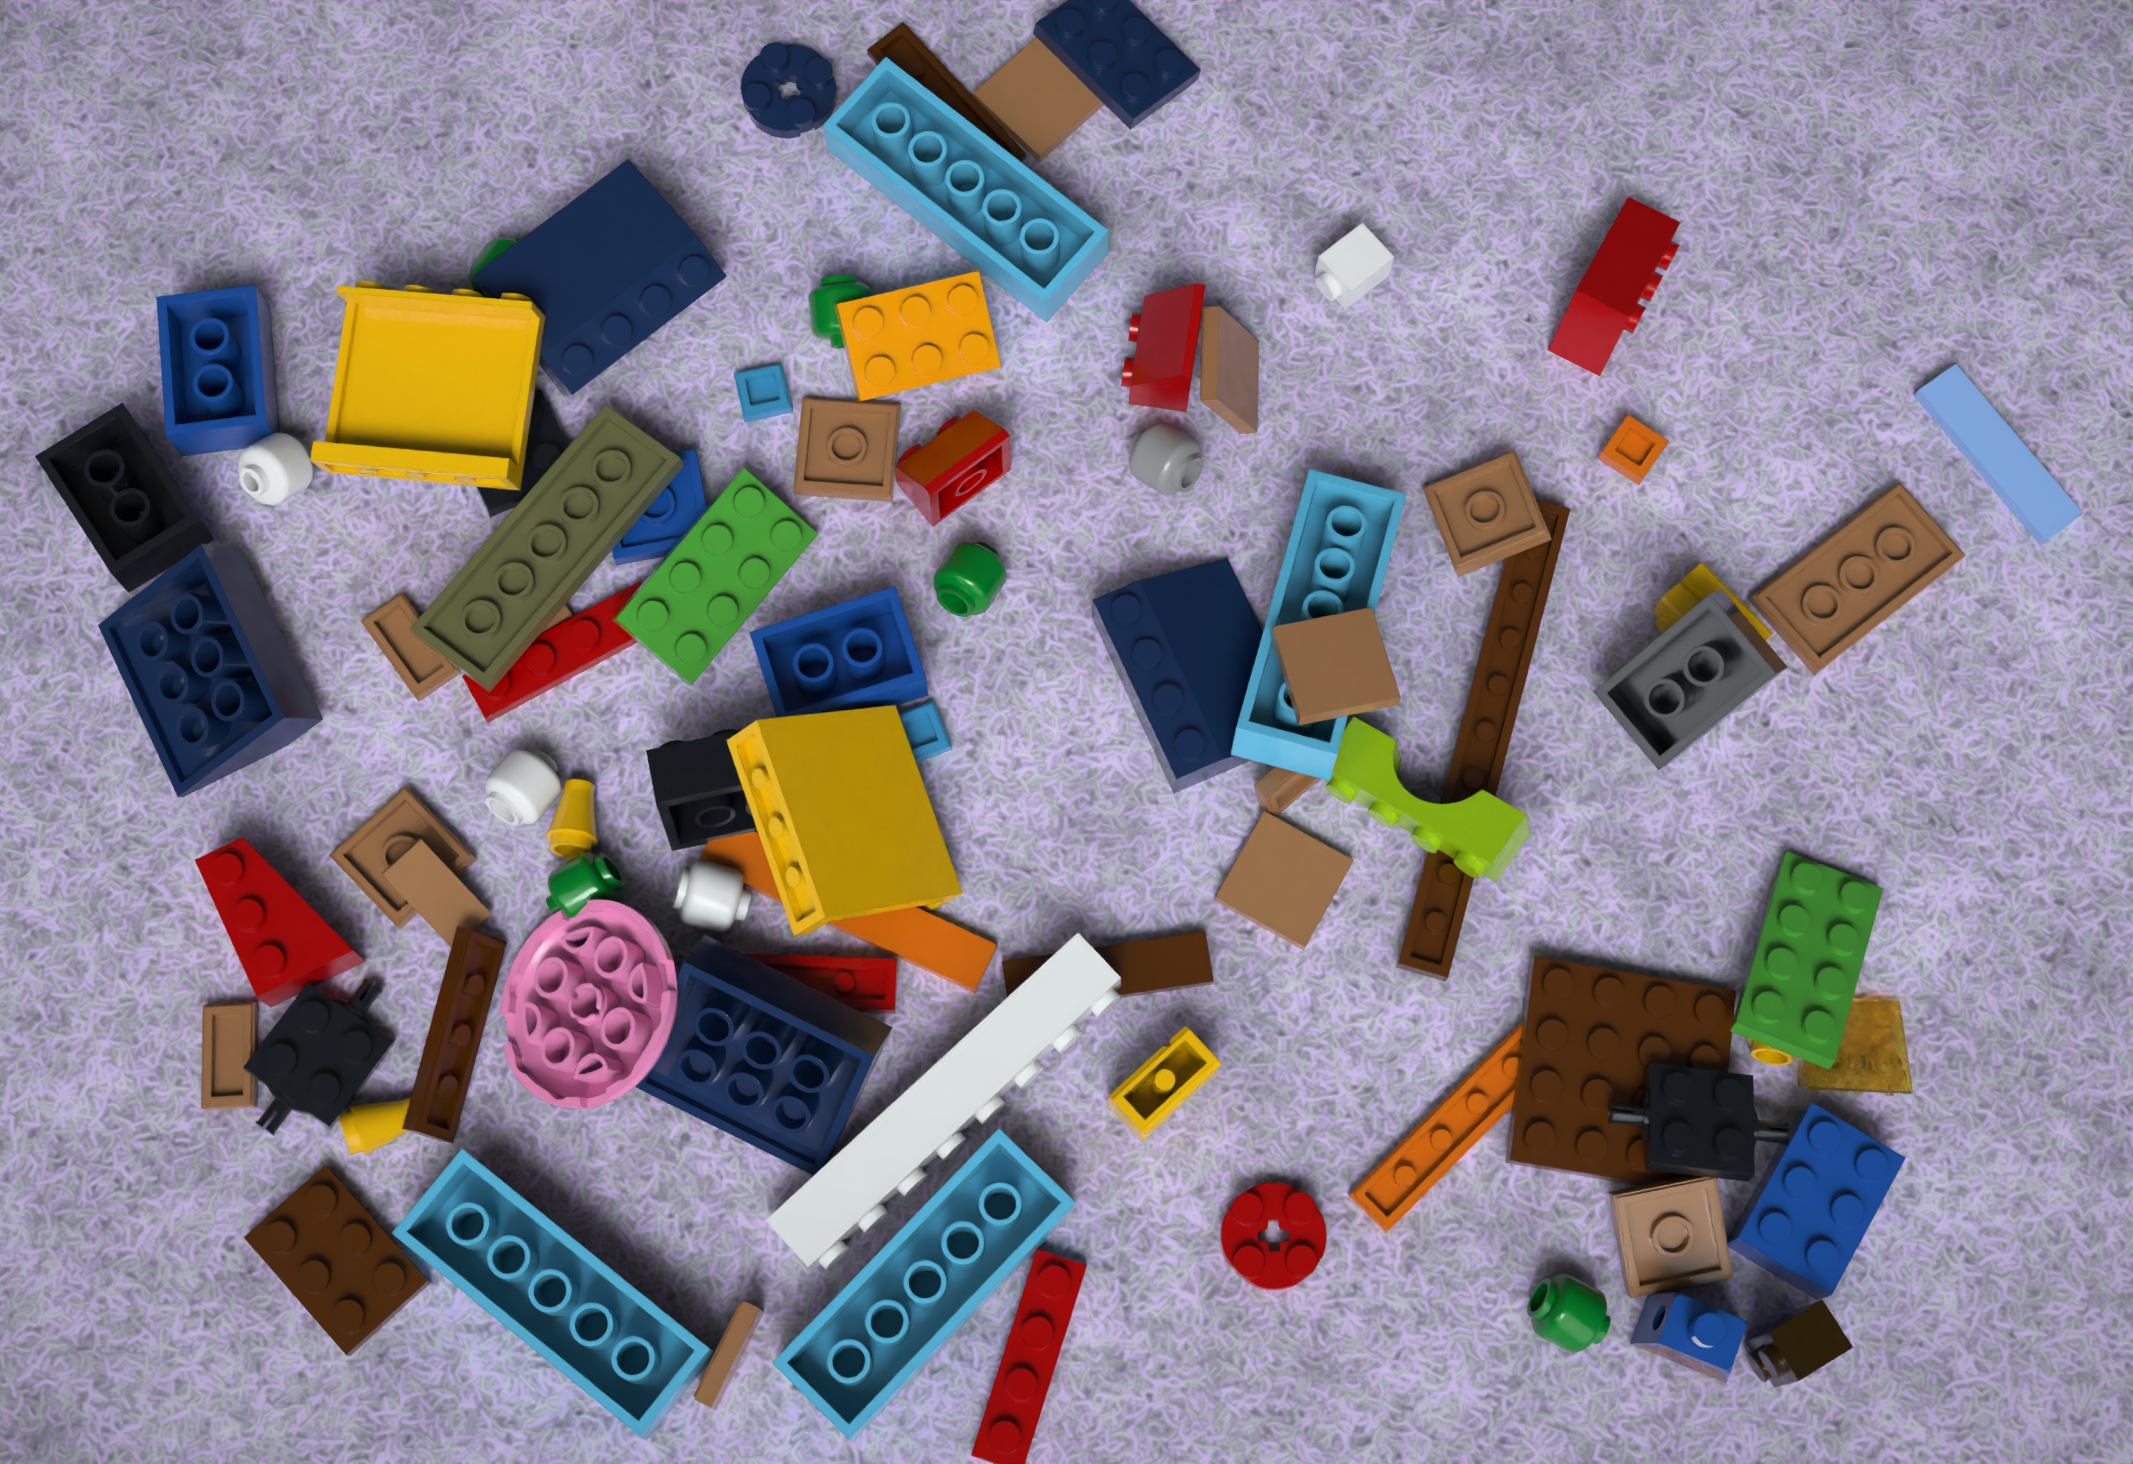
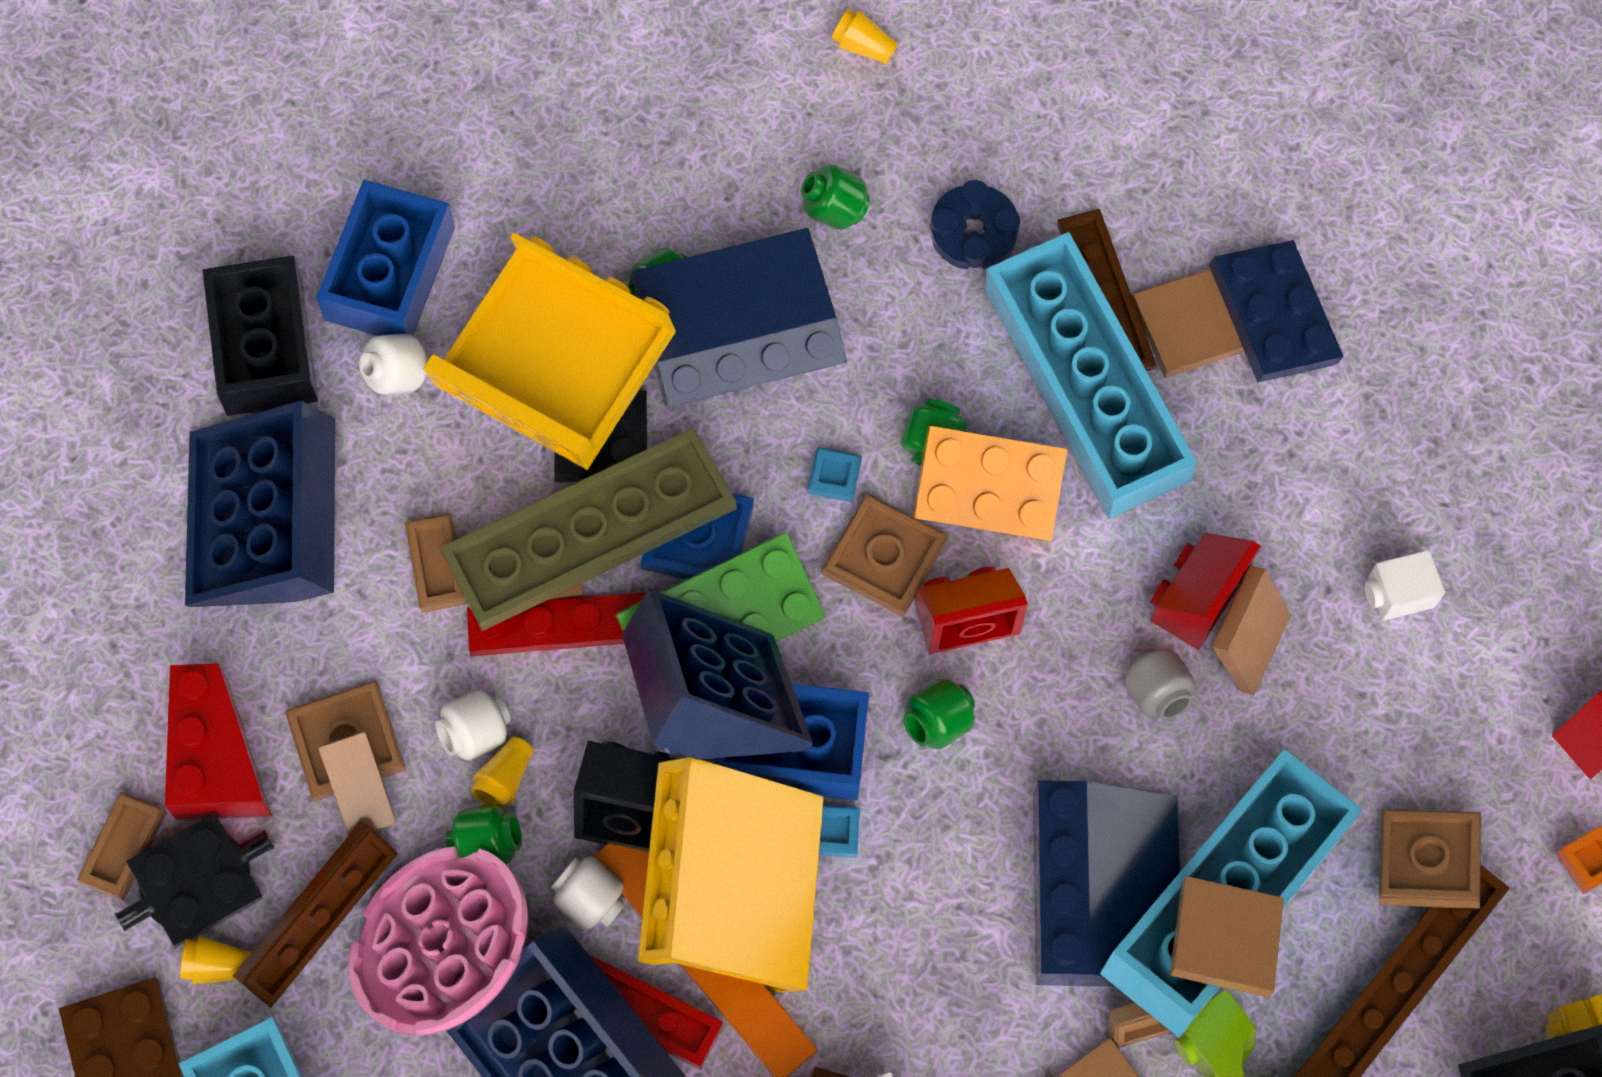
camera: 25 degrees right, 5 degrees down
(639, 117) = (835, 197): none -> green head
(740, 642) = (711, 683): none -> dark blue slope

